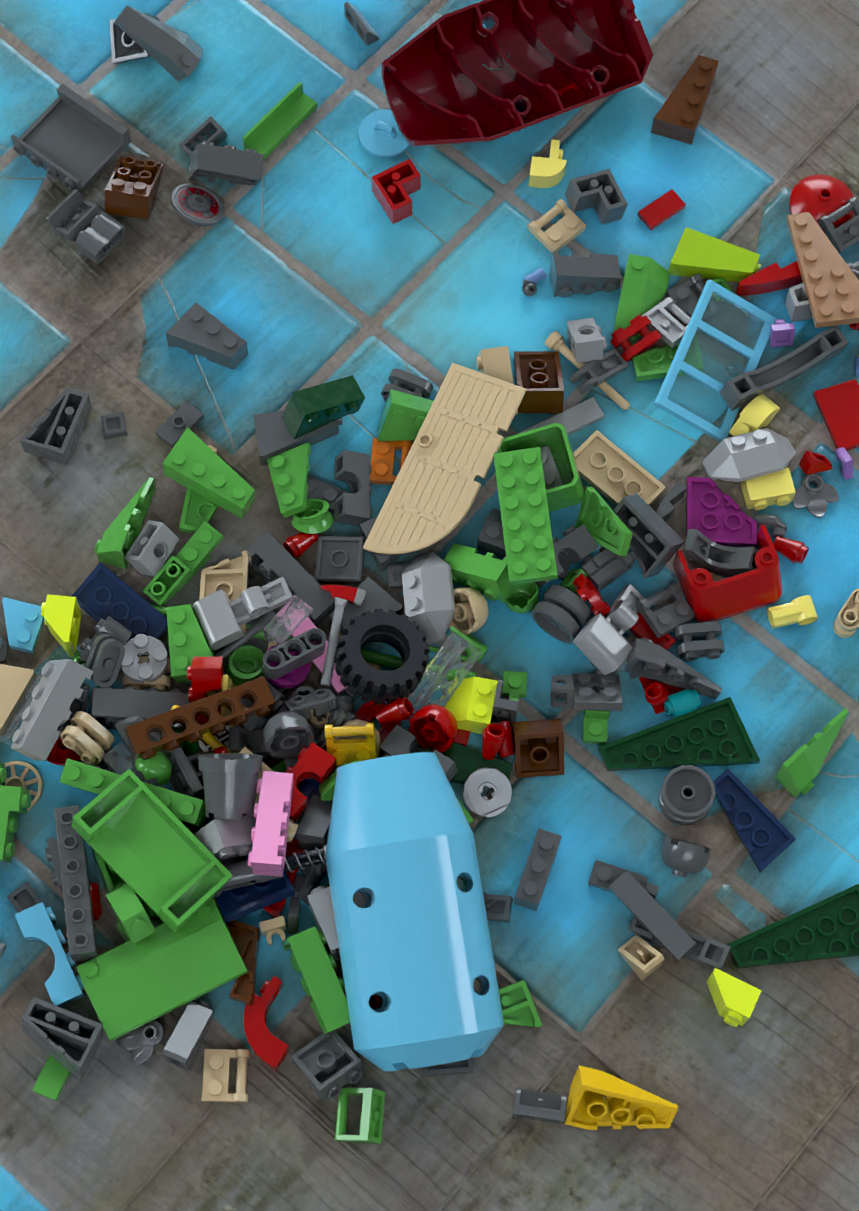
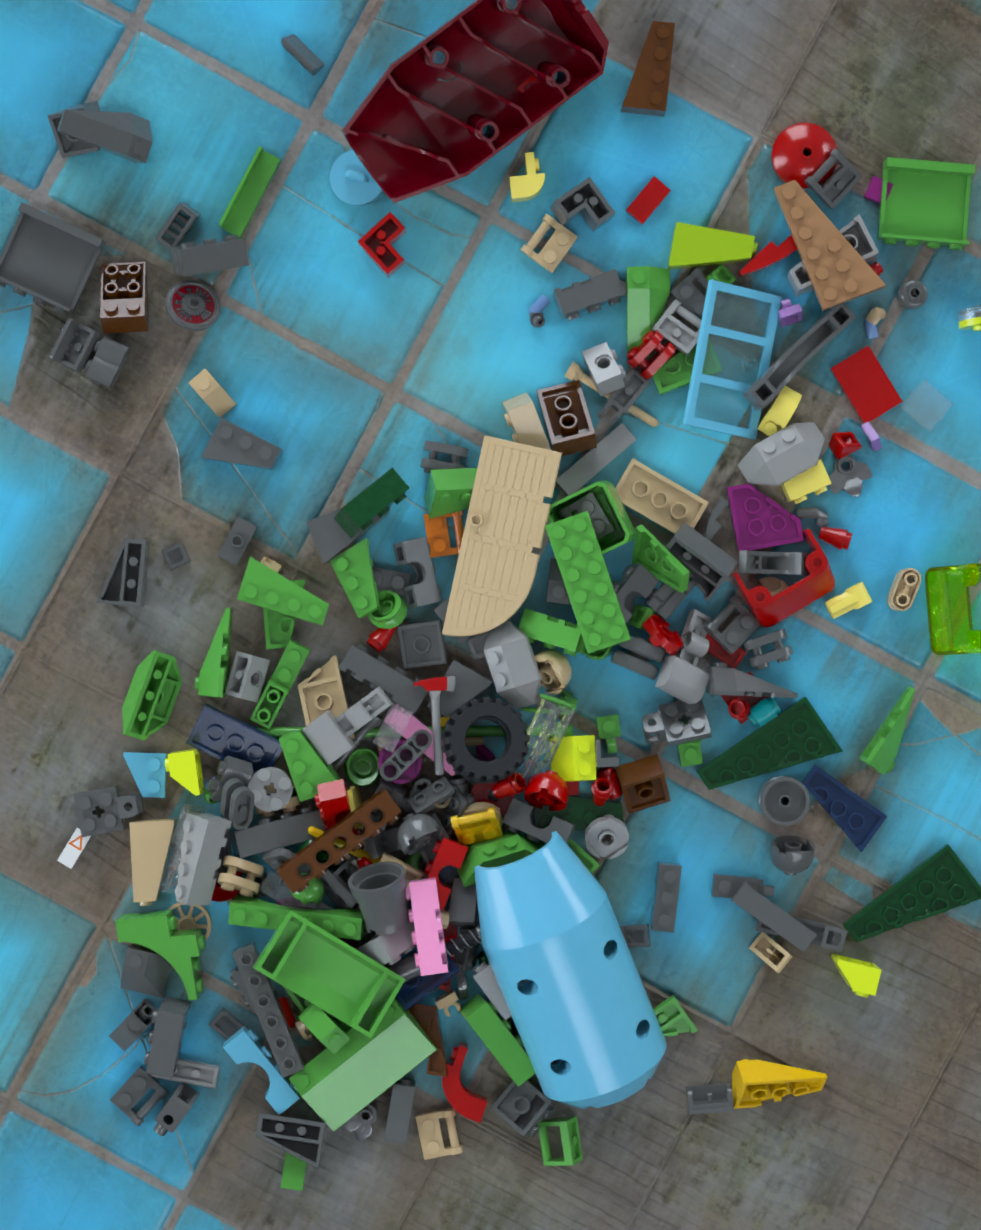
camera: 10 degrees left, 20 degrees up
(50, 544) = (151, 695): none -> bright green wedge
(108, 923) = (304, 1031): none -> tan tile
(193, 283) = (212, 393): none -> tan slope

